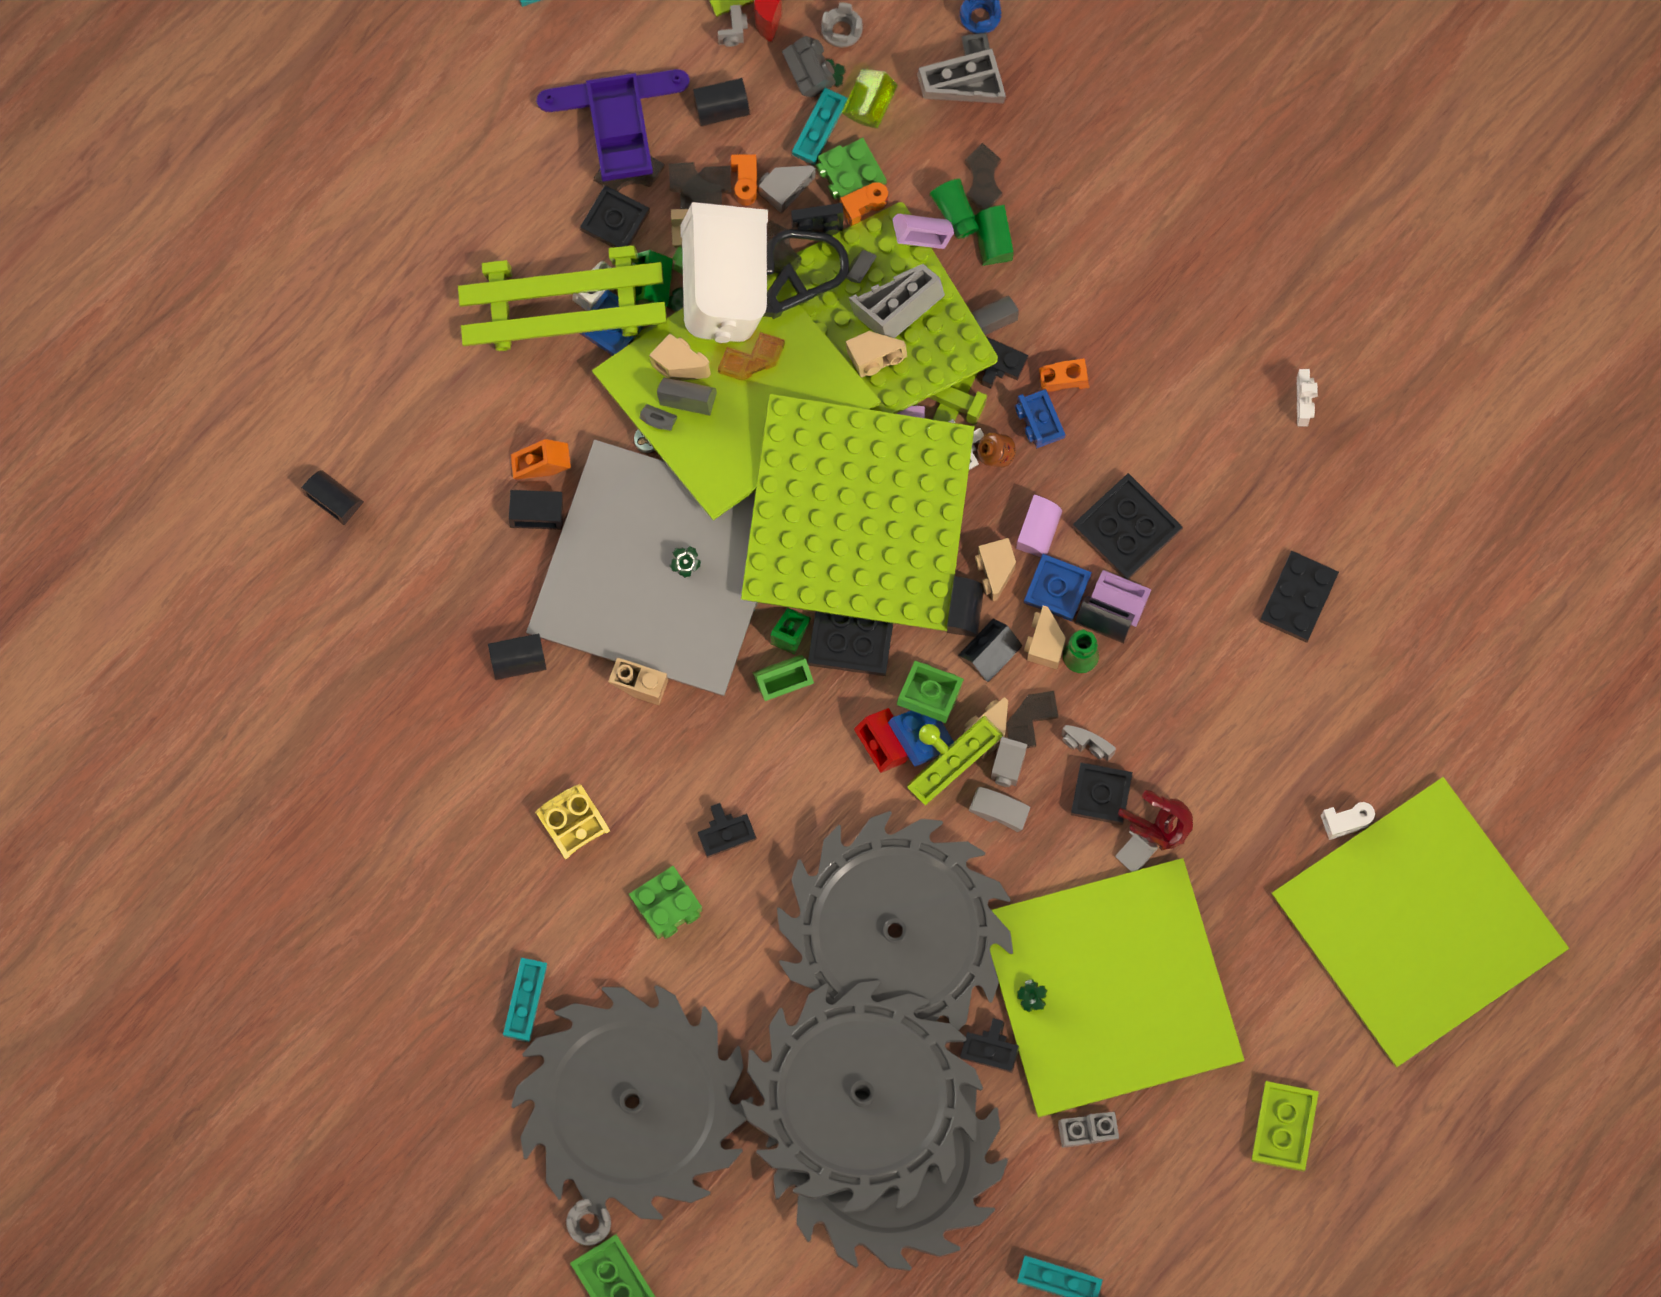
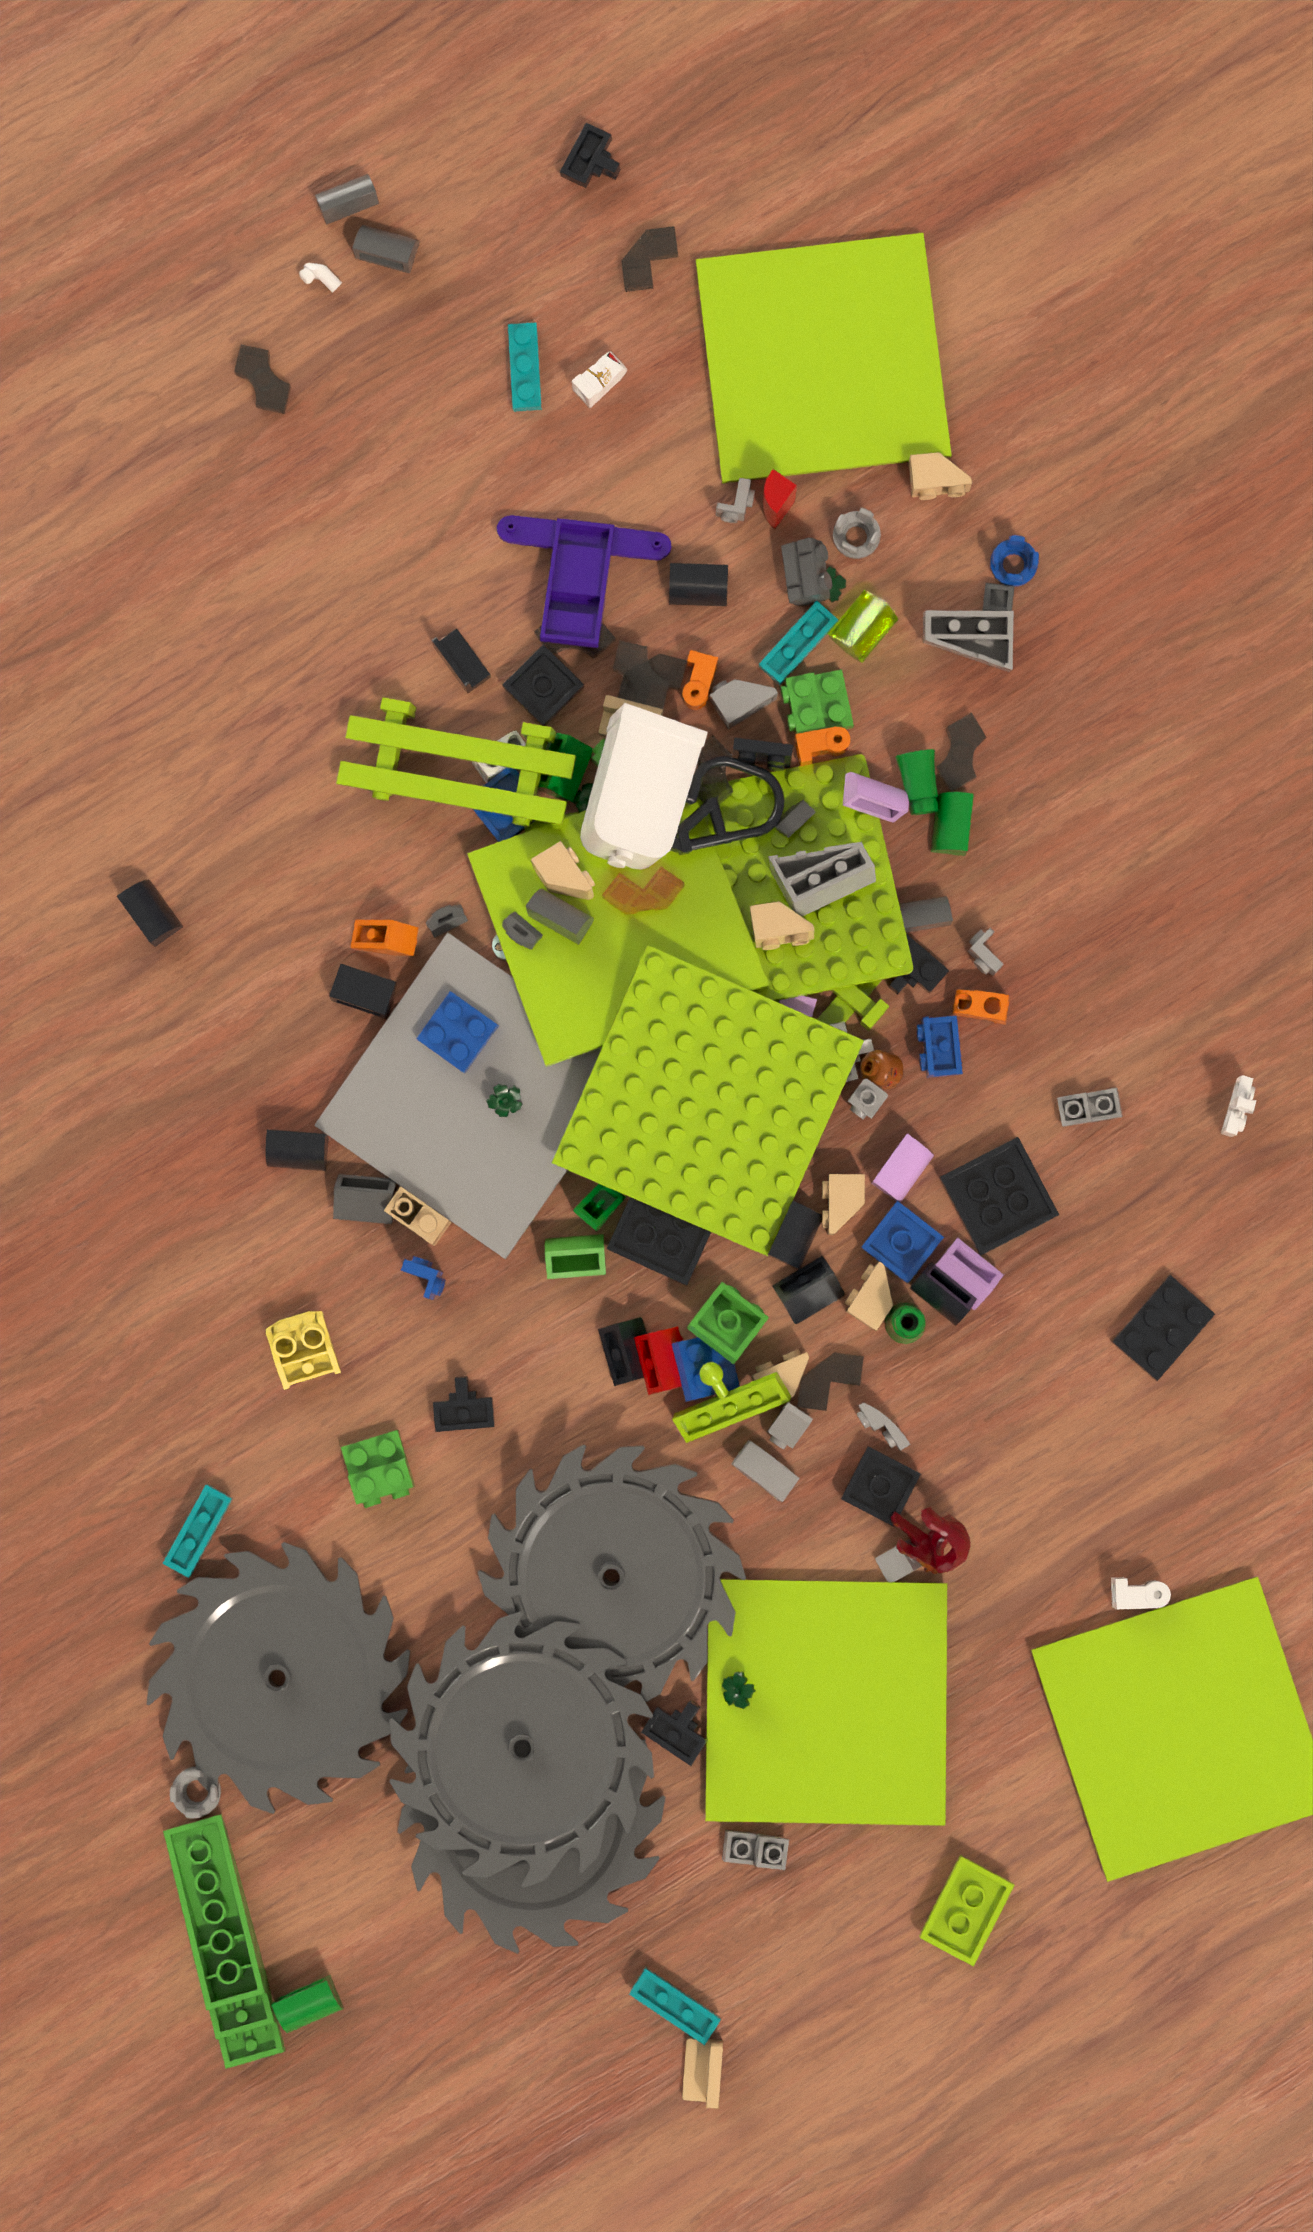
camera: 25 degrees right, 10 degrees up
(310, 44) = (270, 391): none -> clear smoke tile
(538, 218) = (461, 660): none -> black panel
(587, 681) = (363, 1198): none -> dark grey brick
(588, 433) = (446, 919): none -> dark grey piece
(627, 518) = (457, 1032): none -> blue plate
(659, 723) = (422, 1268): none -> blue bracket
(846, 744) = (622, 1351): none -> black panel
(991, 477) = (867, 1099): none -> light grey bracket
(1054, 336) = (984, 958): none -> light grey bracket
(1181, 434) = (1089, 1107): none -> light grey slope

